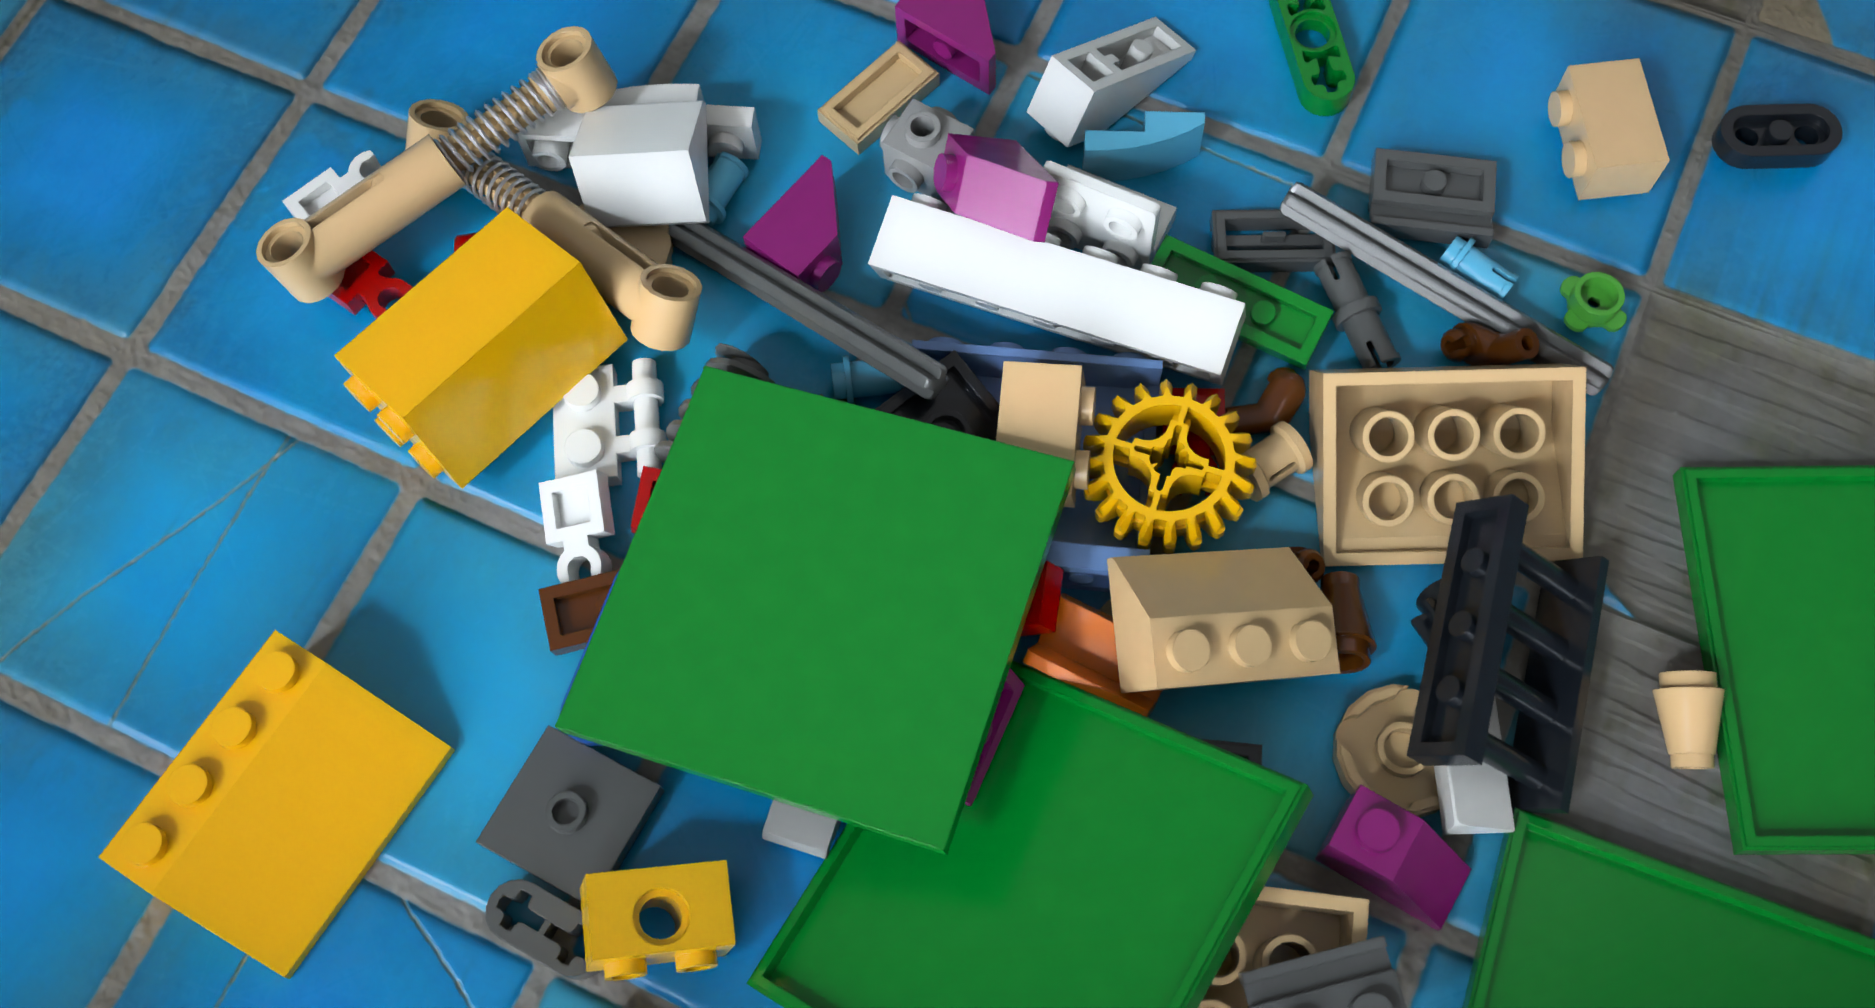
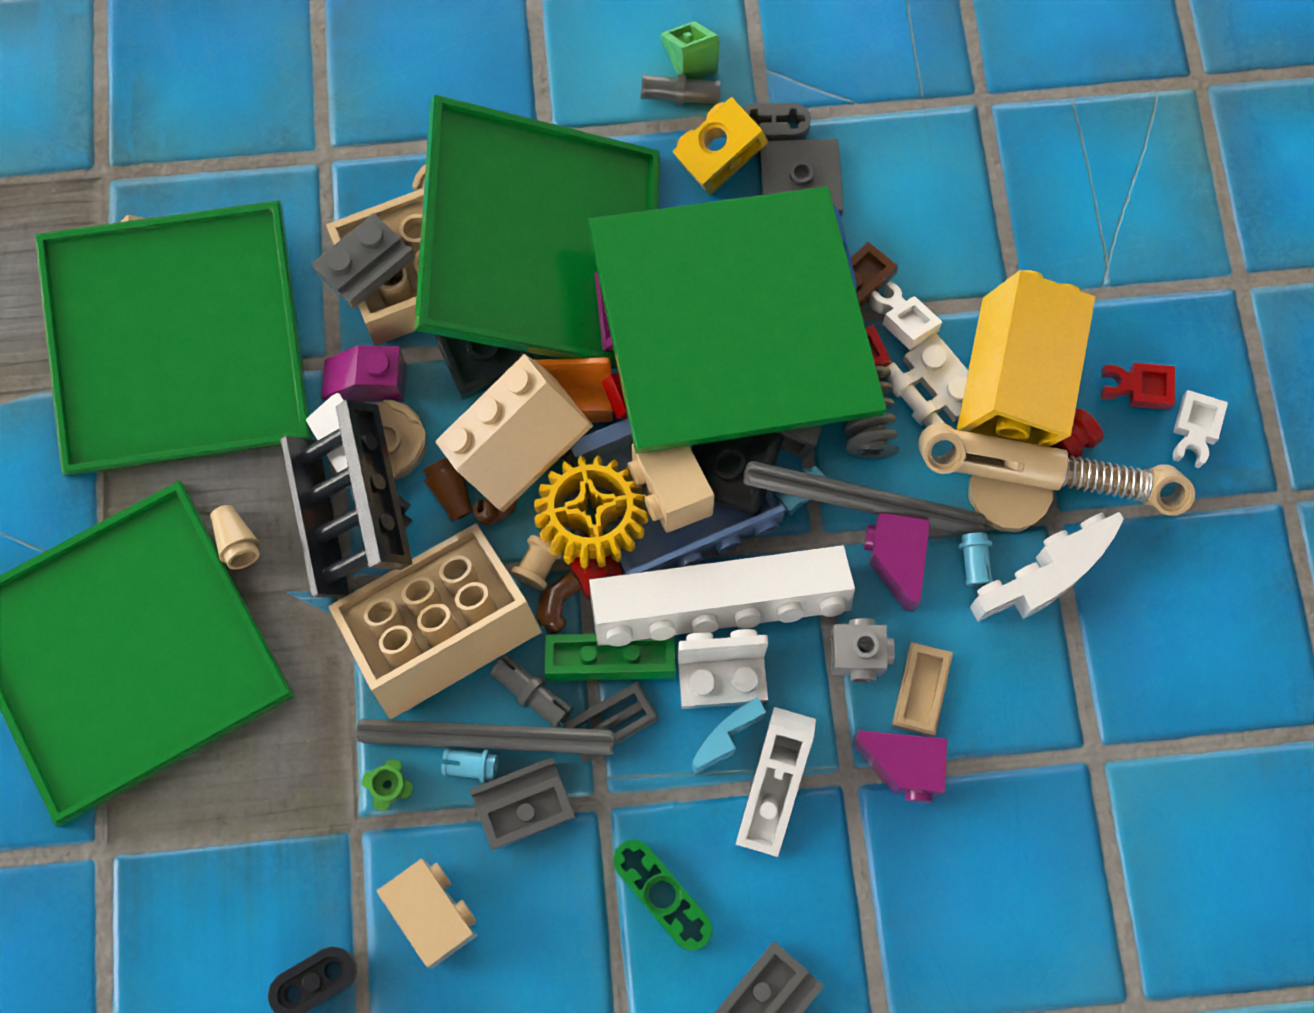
camera: 145 degrees right, 5 degrees up
(278, 805) = (949, 104): yellow slope -> none
(314, 252) = (1139, 450): tan piece -> none
(643, 164) = (1026, 533): white slope -> none
(996, 185) = (794, 621): slope -> none
(1484, 346) = (439, 711): reddish brown arm -> none

